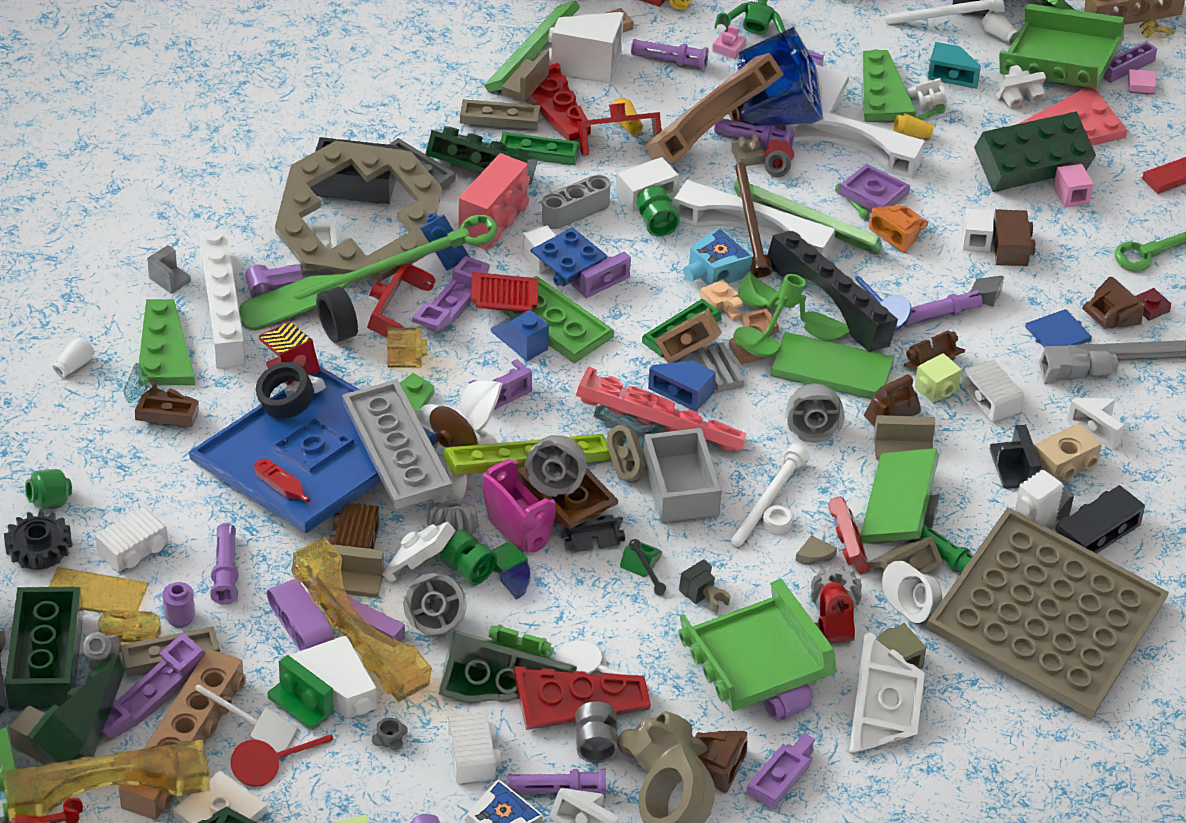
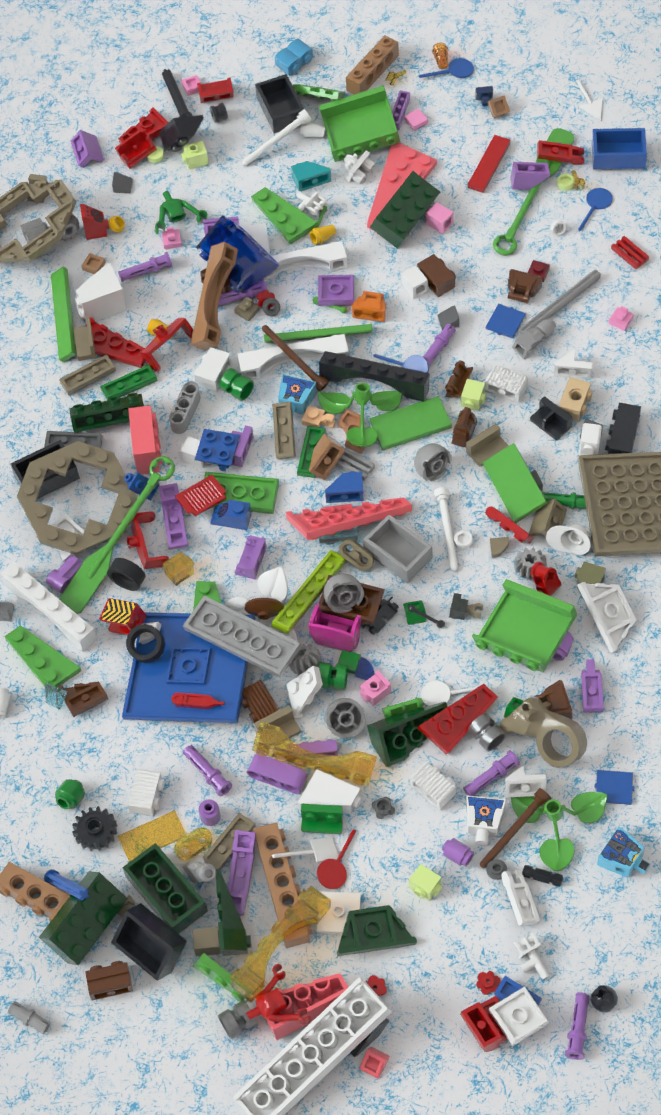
camera: 30 degrees left, 15 degrees up
(507, 604) = (374, 695): none -> bright pink brick
(666, 283) = (283, 430): none -> dark tan plate

